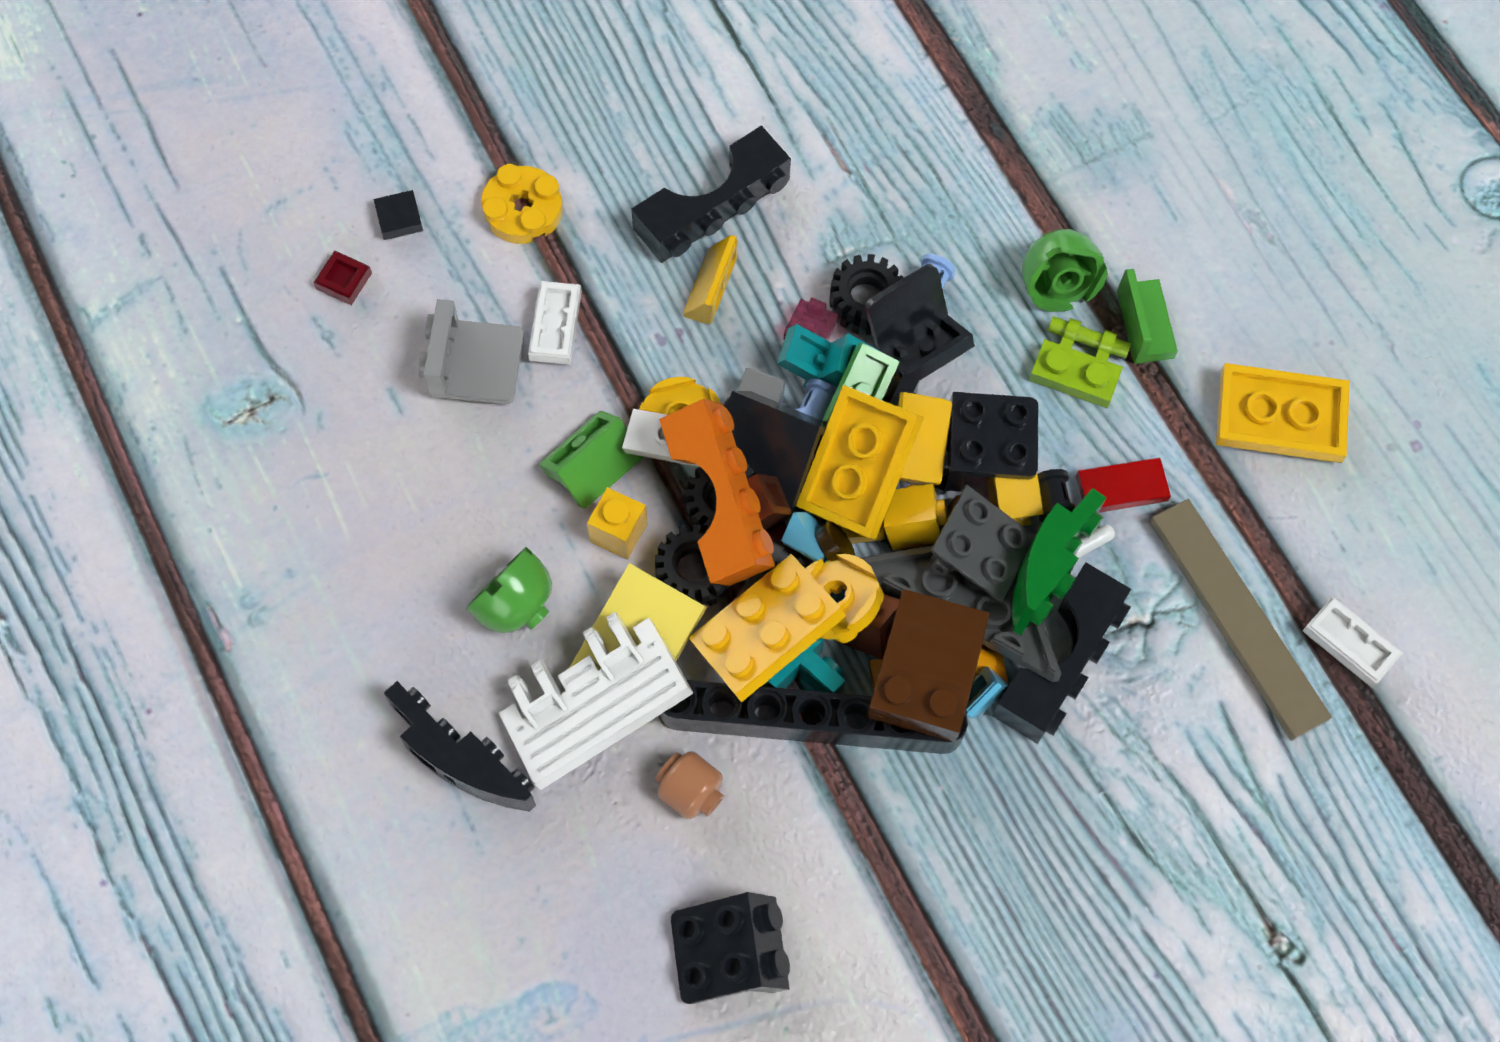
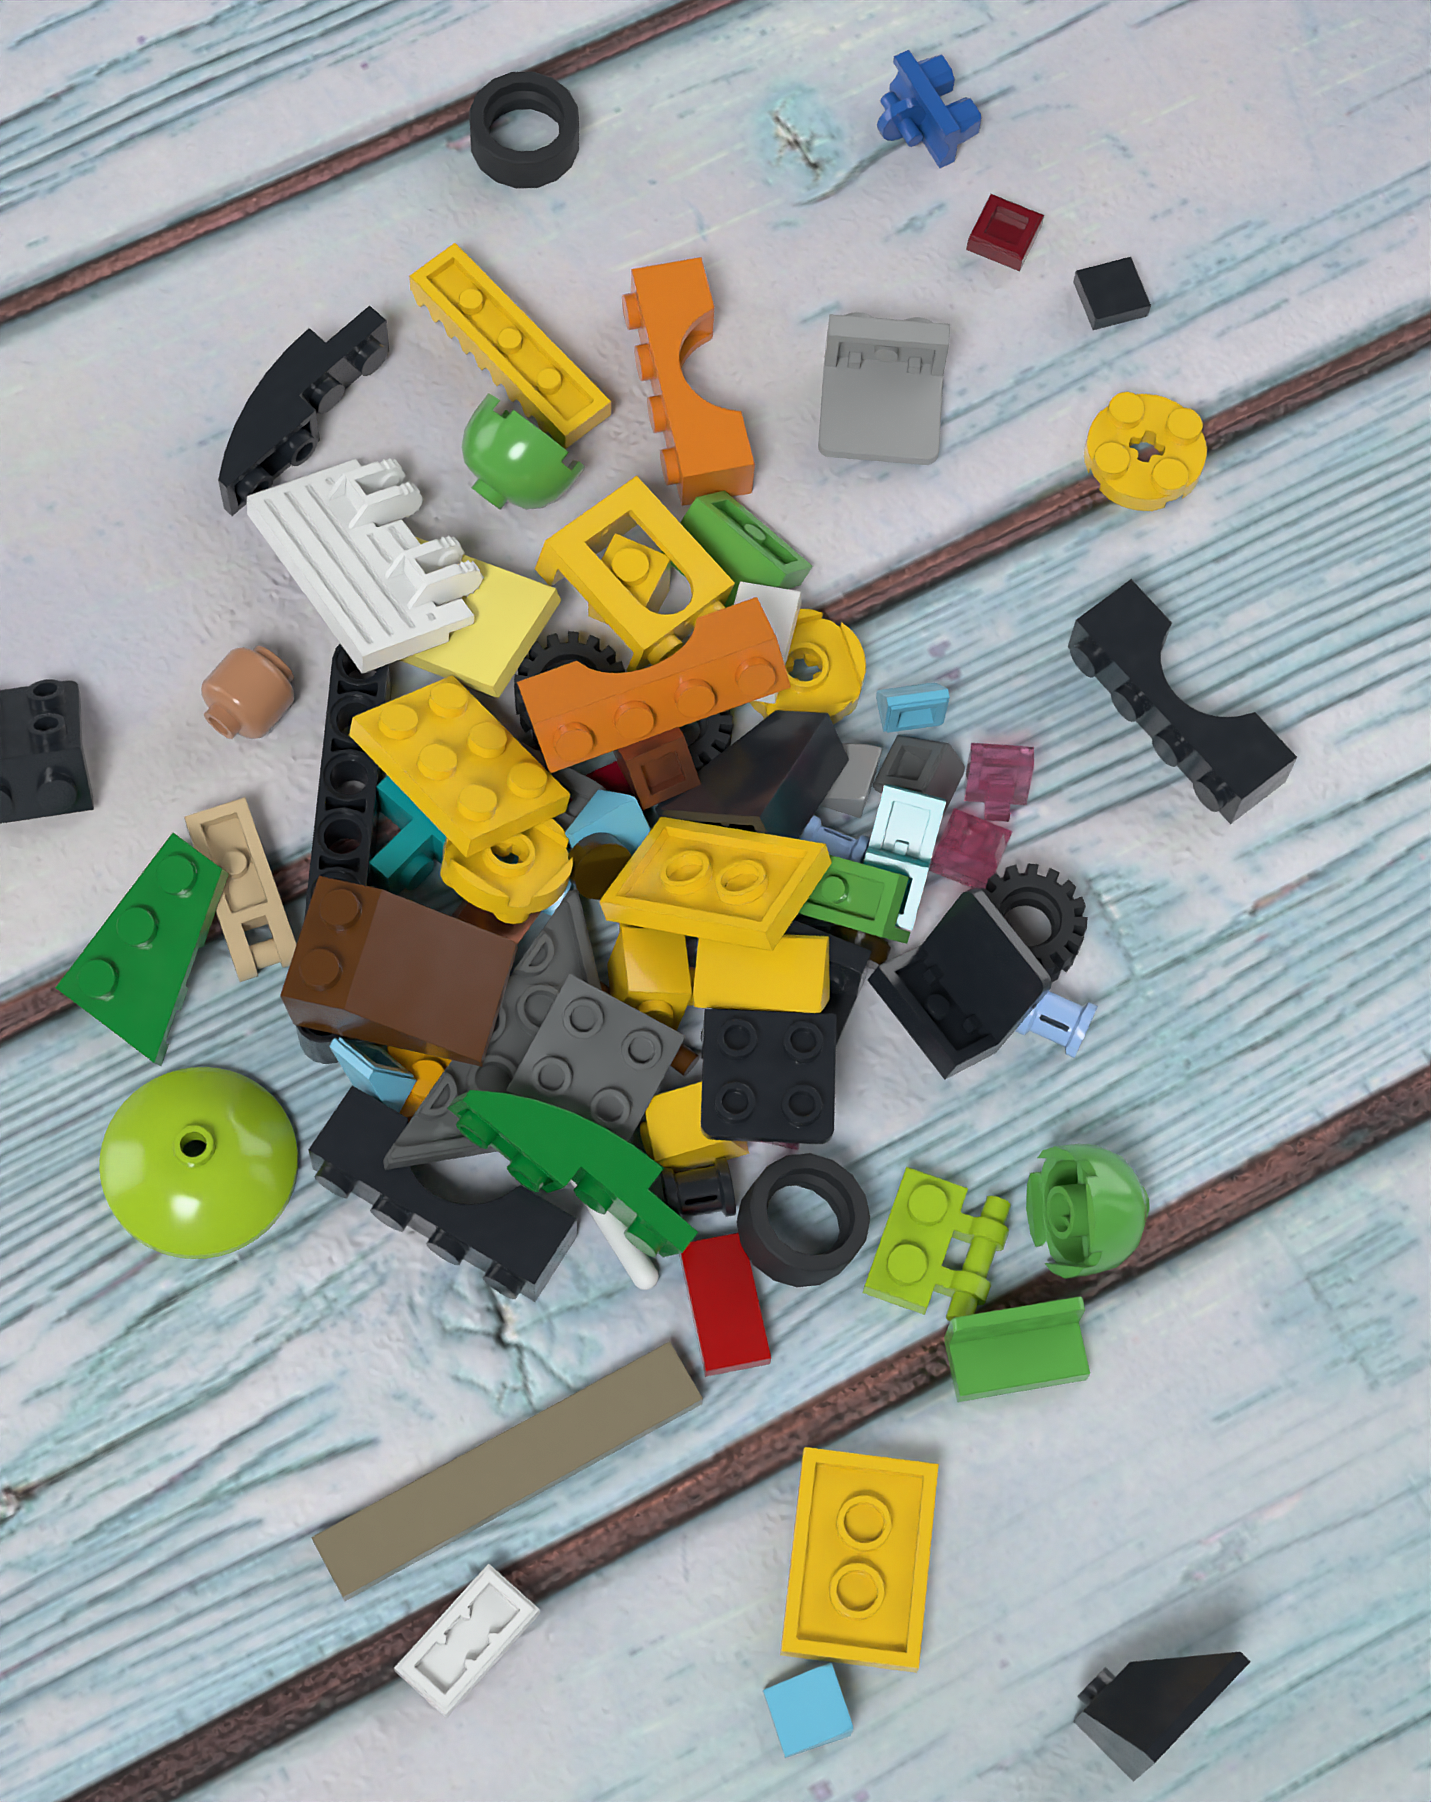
camera: 85 degrees right, 0 degrees up
(207, 566) = (524, 92): none -> black tyre
(241, 320) = (918, 112): none -> blue hips
(414, 603) = (509, 346): none -> yellow gear
(504, 476) = (703, 441): none -> orange arch
(555, 322) = (948, 500): white plate -> none
(601, 552) = (573, 555): none -> yellow panel
(705, 353) = (912, 706): none -> medium azure slope
(712, 281) = (1033, 713): yellow slope -> none
(754, 352) = (921, 767): none -> dark grey slope
(767, 301) = (998, 778): none -> clear pink tile
(839, 788) = (250, 894): none -> tan plate
(890, 850) = (143, 953): none -> green wing
(1018, 840) = (206, 1201): none -> lime dish
(1080, 407) = (830, 1183): none -> black tyre
(1366, 247) = (1152, 1705): none -> black slope
(1374, 445) = (808, 1711): none -> medium azure slope

